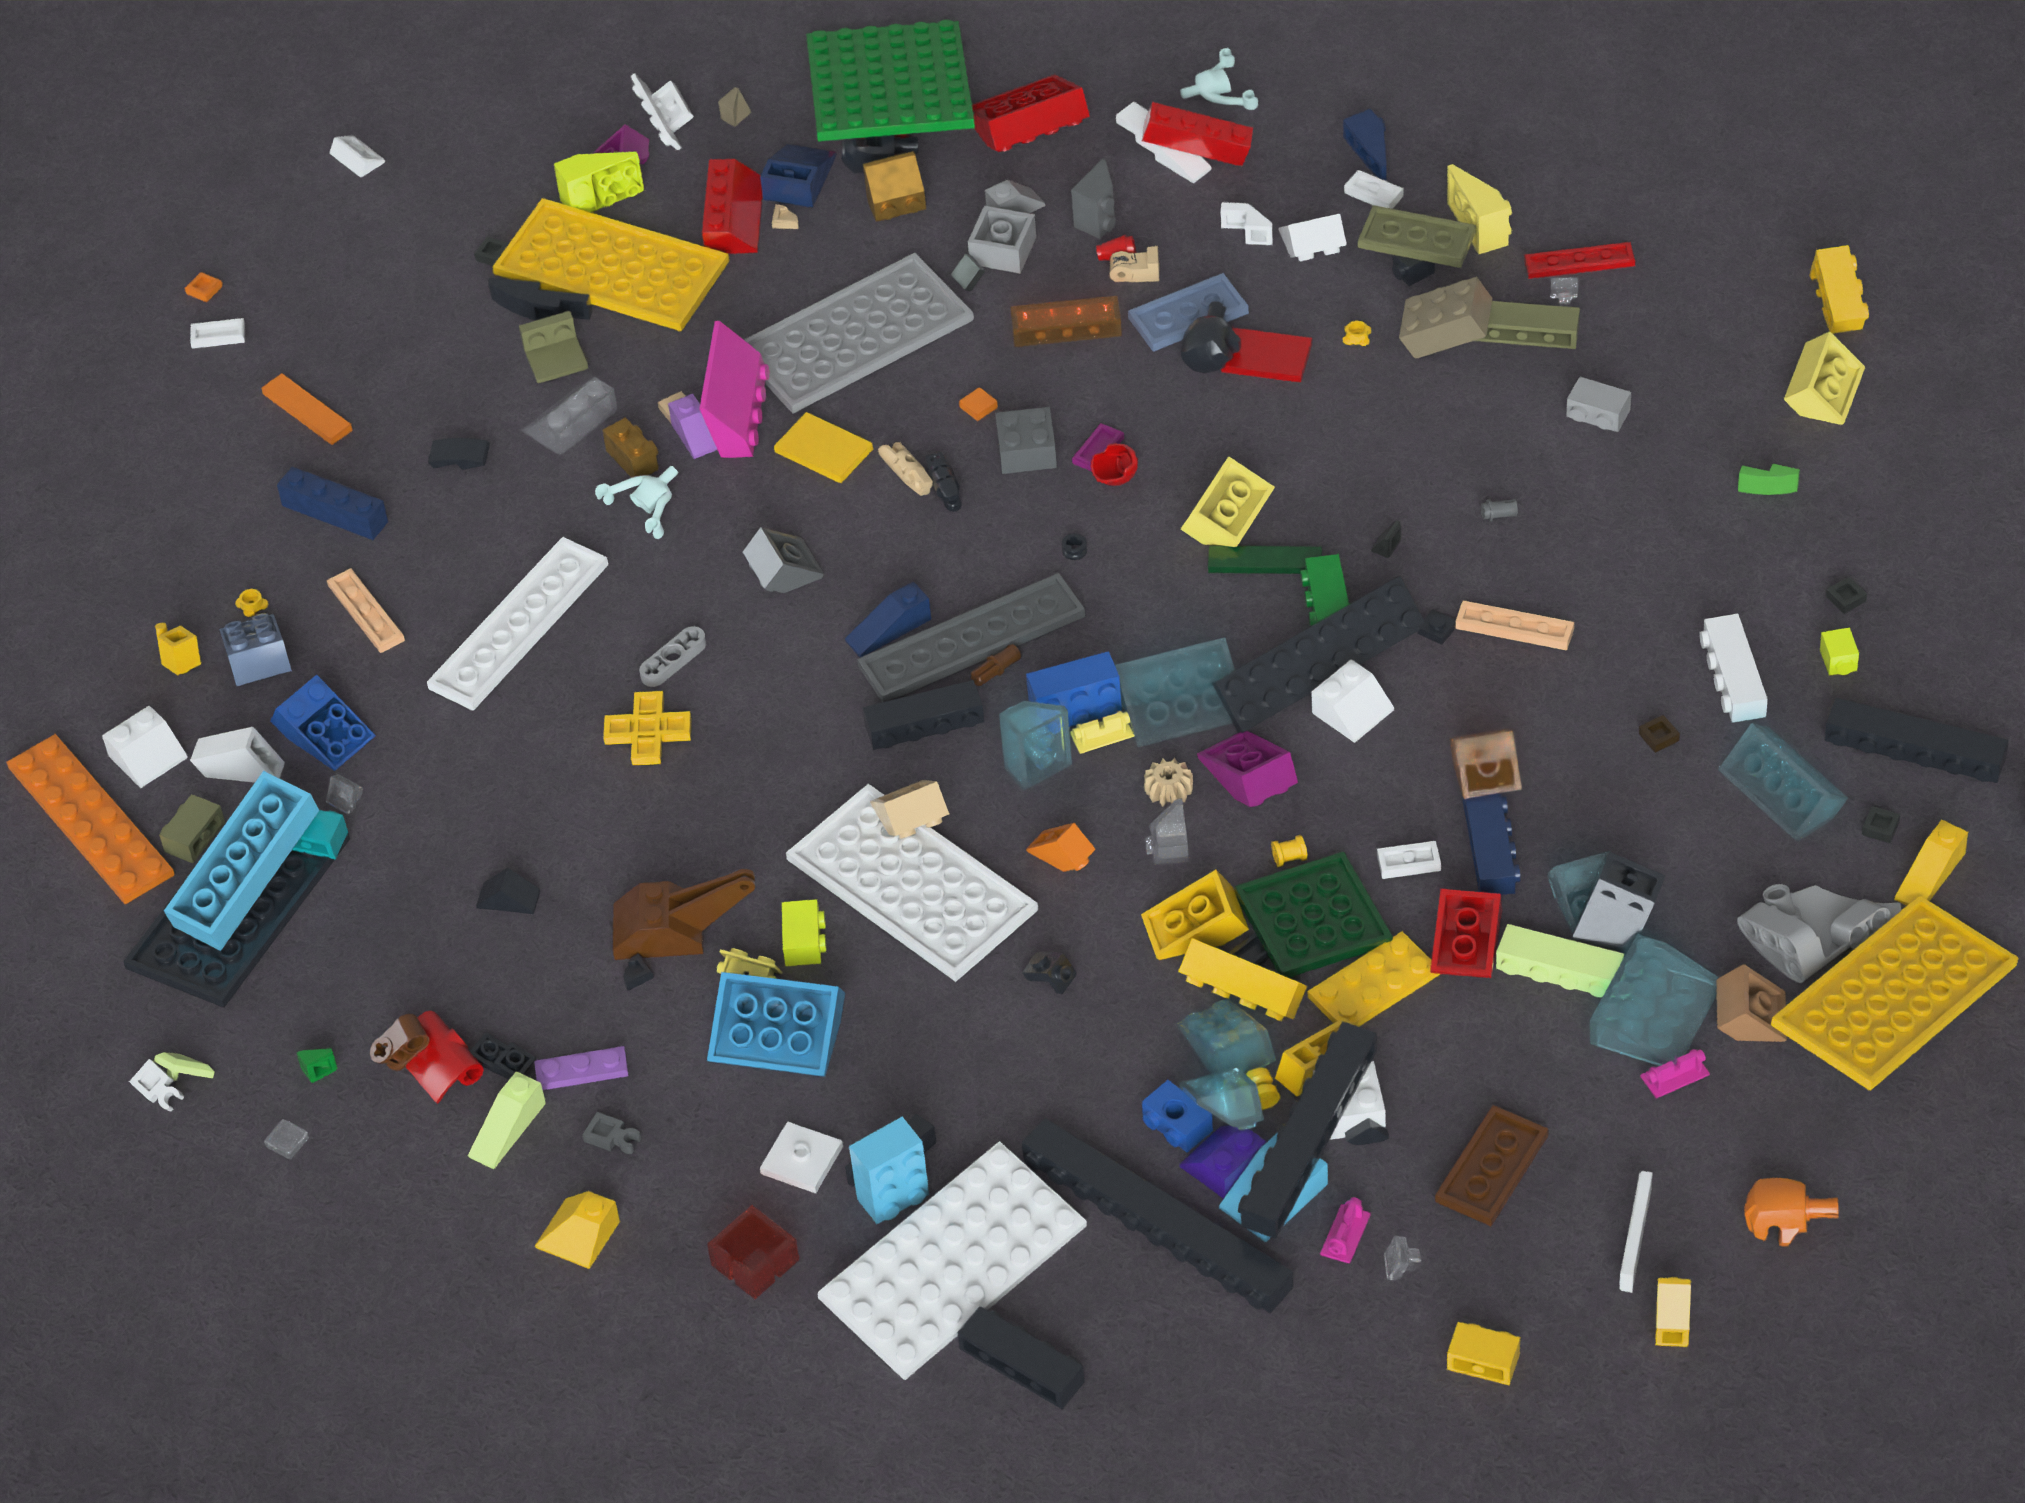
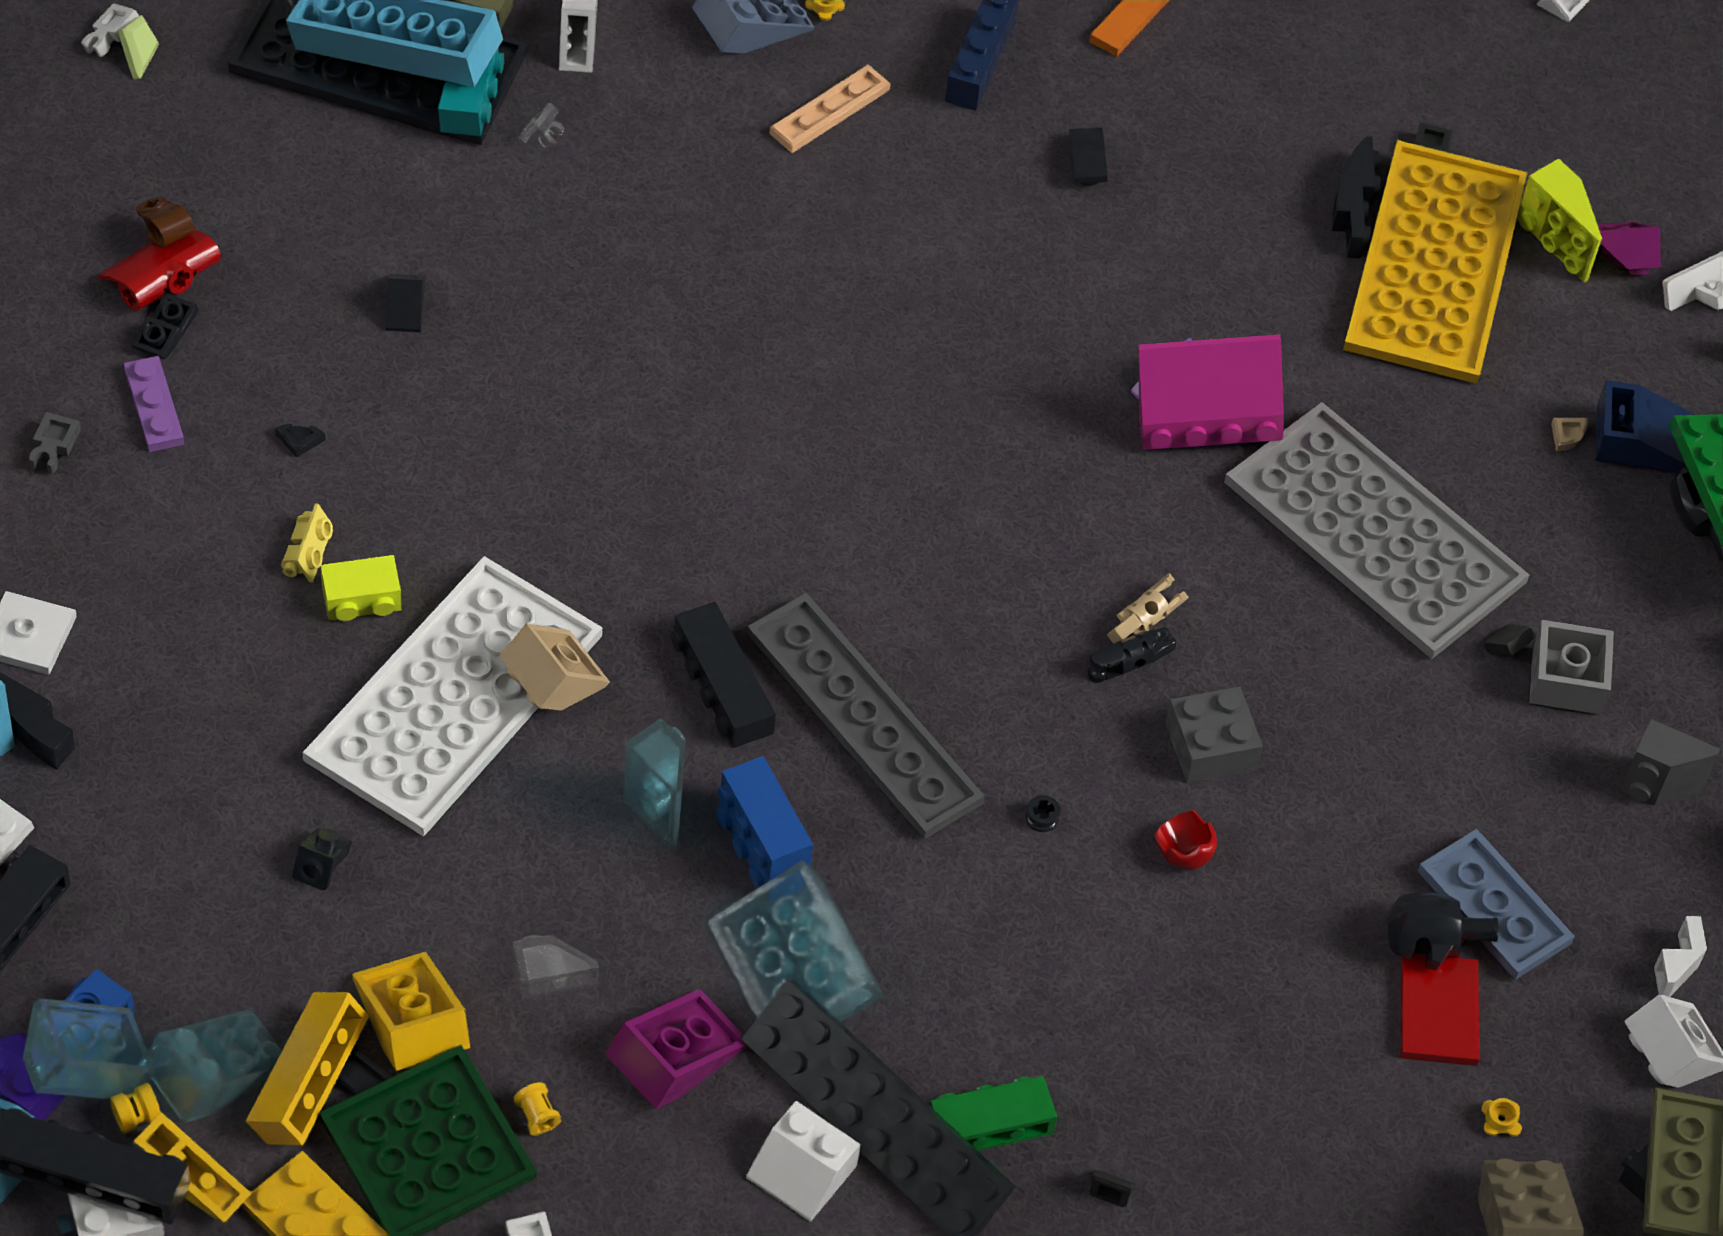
camera: 70 degrees right, 5 degrees up
(286, 1139) = (40, 150): clear plate -> none
(317, 1063) = (141, 158): green slope -> none
(321, 724) = (642, 90): blue slope -> none
(508, 1118) = (73, 342): yellowish green slope -> none
(517, 623) = (826, 250): white plate -> none
(552, 347) = (1277, 223): olive bracket -> none
(573, 416) = (1169, 257): clear slope -> none
(630, 448) = (1119, 318): pearl gold brick -> none
(647, 728) = (674, 397): yellow plate -> none
(650, 495) = (1047, 349): light aqua piece -> none
(671, 920) = (365, 449): reddish brown slope -> none
(676, 645) = (789, 396): light grey beam -> none
(732, 207) = (1560, 367): red slope -> none
(775, 1024) = (221, 579): dark azure slope -> none
(781, 561) = (961, 497): dark grey slope -> none
(823, 447) = (1170, 521): yellow tile -> none
(891, 619) = (881, 624): dark blue slope -> none
(894, 186) = (1635, 534): pearl gold slope -> none
(978, 404) = (1279, 680): orange tile -> none
(995, 665) = (820, 744): reddish brown axle -> none
(1013, 197) = (1655, 675): light grey slope -> none
(1062, 847) = (516, 847): orange slope -> none
(1066, 321) = (1444, 760): clear orange brick -> none
(1096, 444) = (1232, 824): magenta tile -> none
(1099, 734) = (719, 872): light yellow hinge -> none
(1115, 245) = (1596, 810): red cone -> none
(1135, 266) = (1568, 833): tan leg -> none
(1168, 781) = (640, 957): tan gear -> none
(1228, 506) = (1131, 978): light yellow slope -> none
(1260, 559) = (1056, 1038): dark green tile -> none

